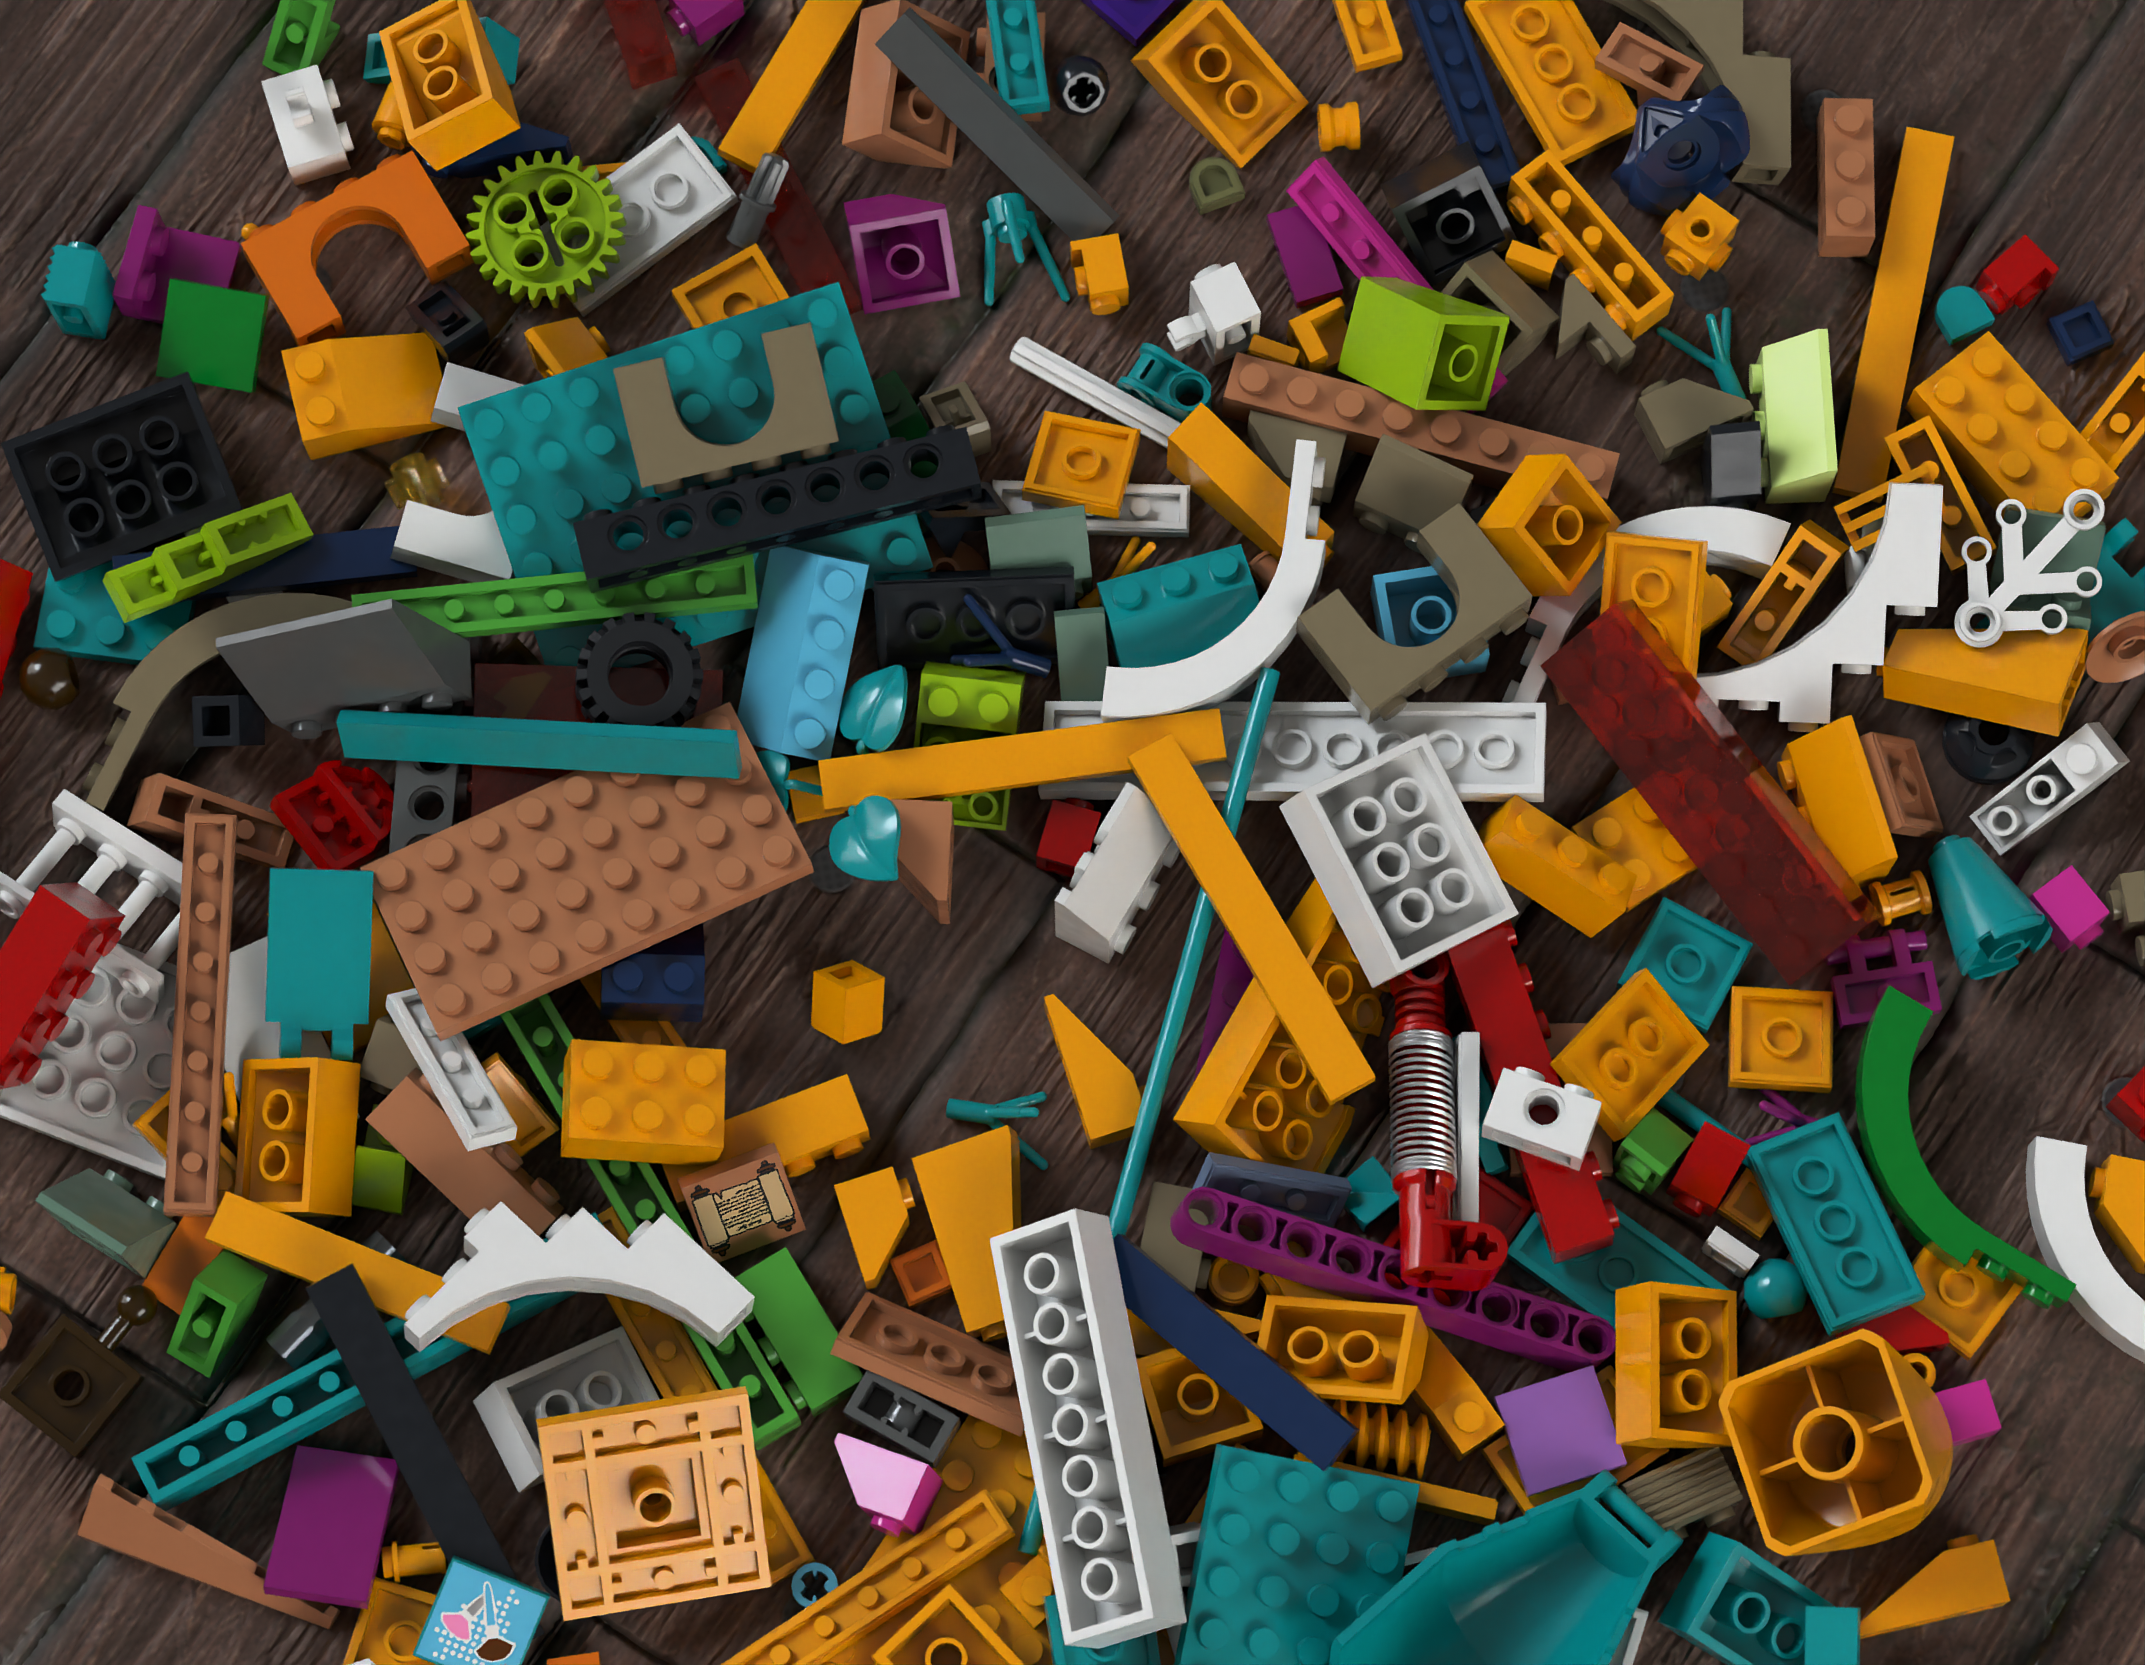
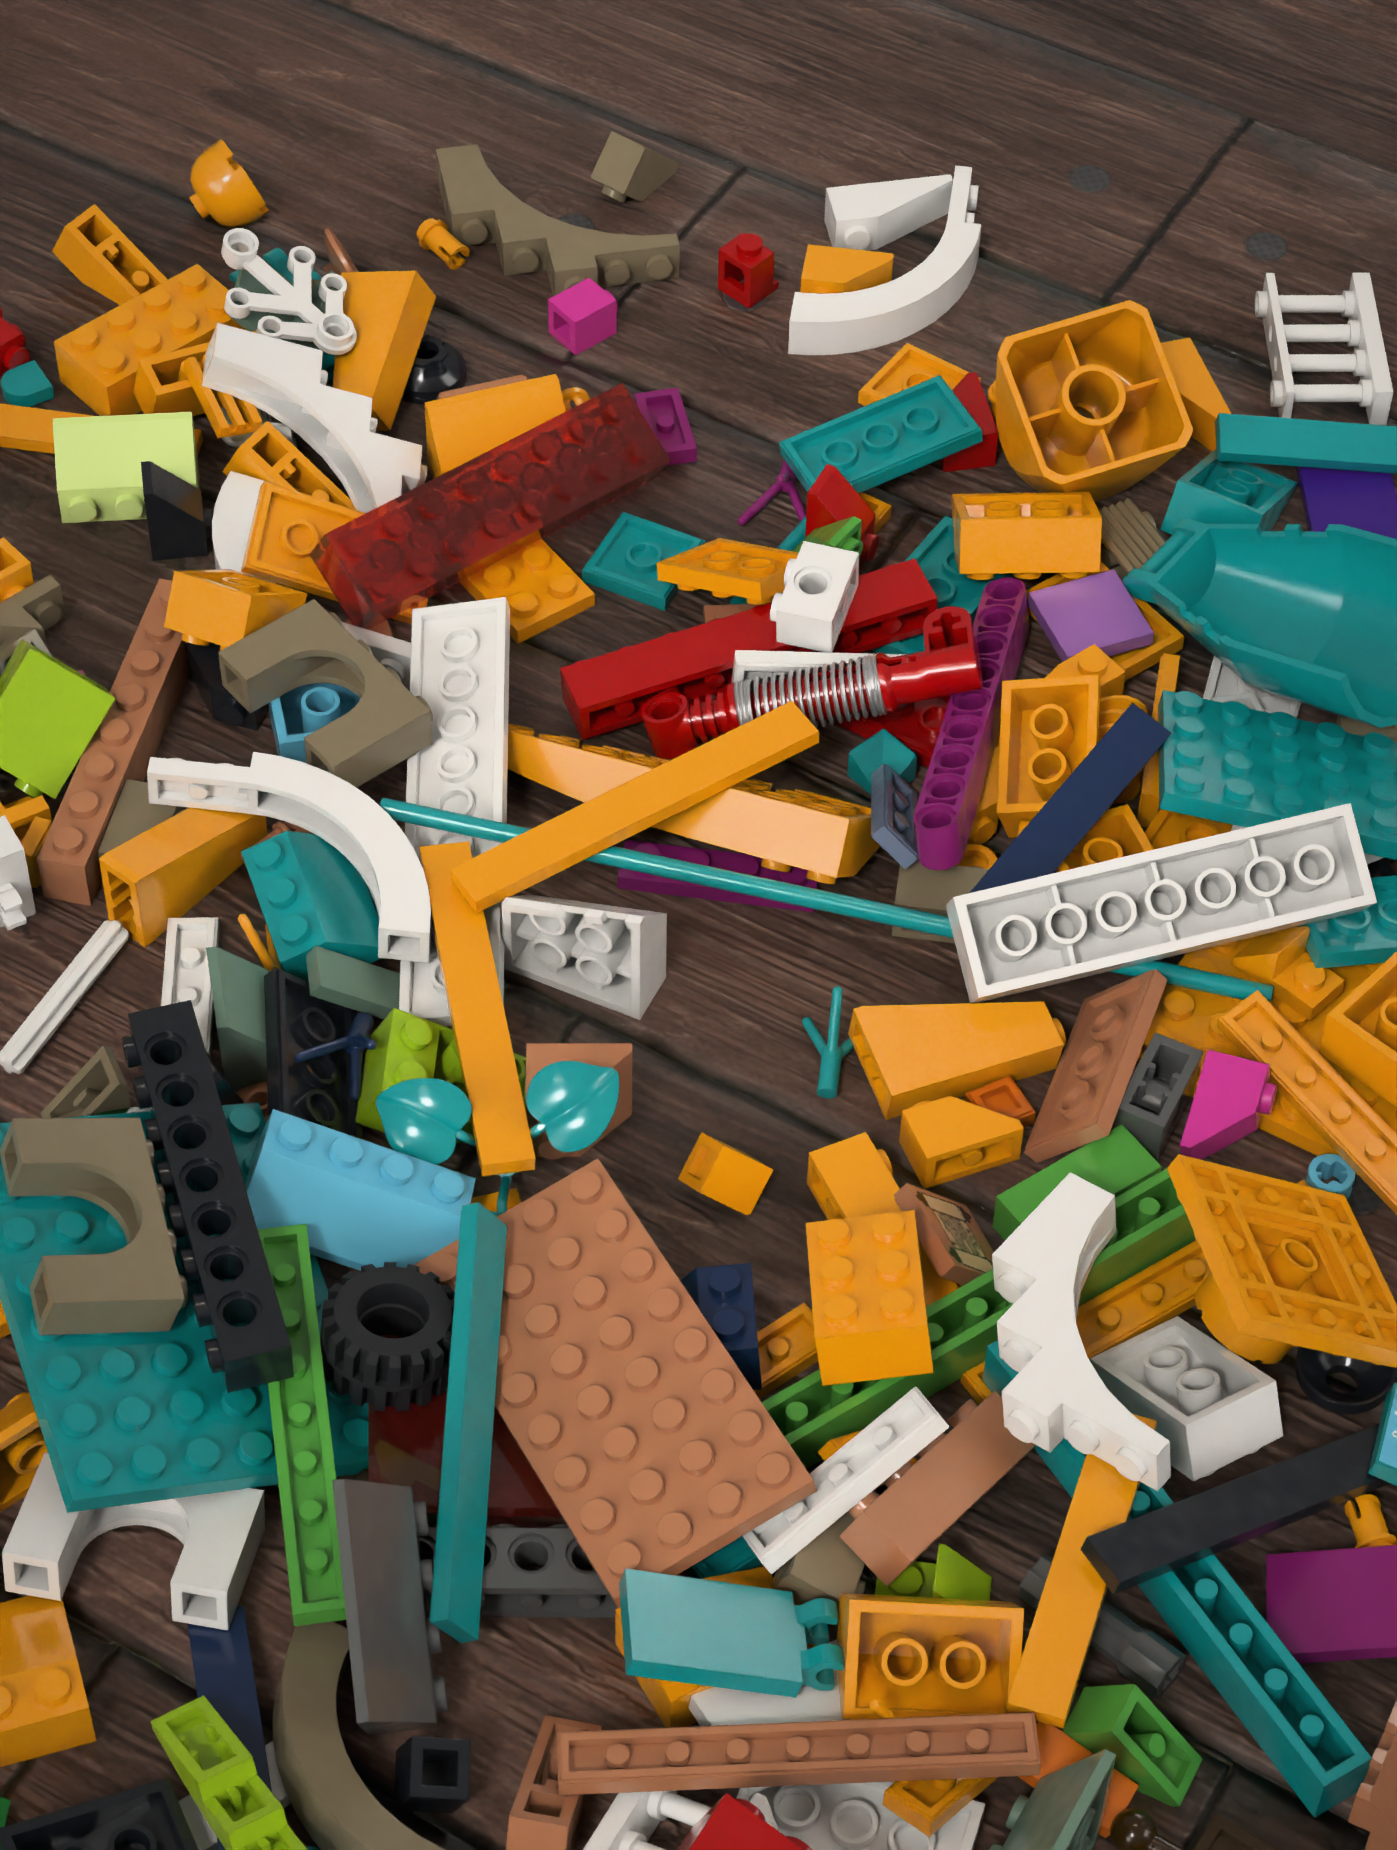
camera: 95 degrees left, 25 degrees down
(337, 815) = (541, 1662): red slope -> none
(416, 481) = (138, 1605): clear yellow gear -> none
(1067, 835) = (544, 996): red brick -> none
(1081, 464) = (135, 985): light orange tile -> none
(1098, 1080) = (791, 967): light orange slope -> none
(1162, 380) = (60, 929): teal piece -> none
(1398, 859) = (577, 702): white slope -> none
(1408, 490) = (193, 718): dark tan slope -> none
(1556, 866) = (565, 618): light orange brick -> none
(1680, 413) = (118, 555): dark tan slope -> none
(1721, 345) = (54, 533): teal plant -> none
(1729, 1252) = (908, 520): white tile -> none
(1775, 1289) = (934, 490): teal piece -> none
(1780, 1039) = (710, 495): light orange tile -> none
(1901, 1172) = (781, 409): green arch -> none
(1983, 909) = (592, 353): teal cone -> none
(2050, 787) = (471, 323): white slope -> none
(2080, 333) = (50, 314): dark blue tile -> none

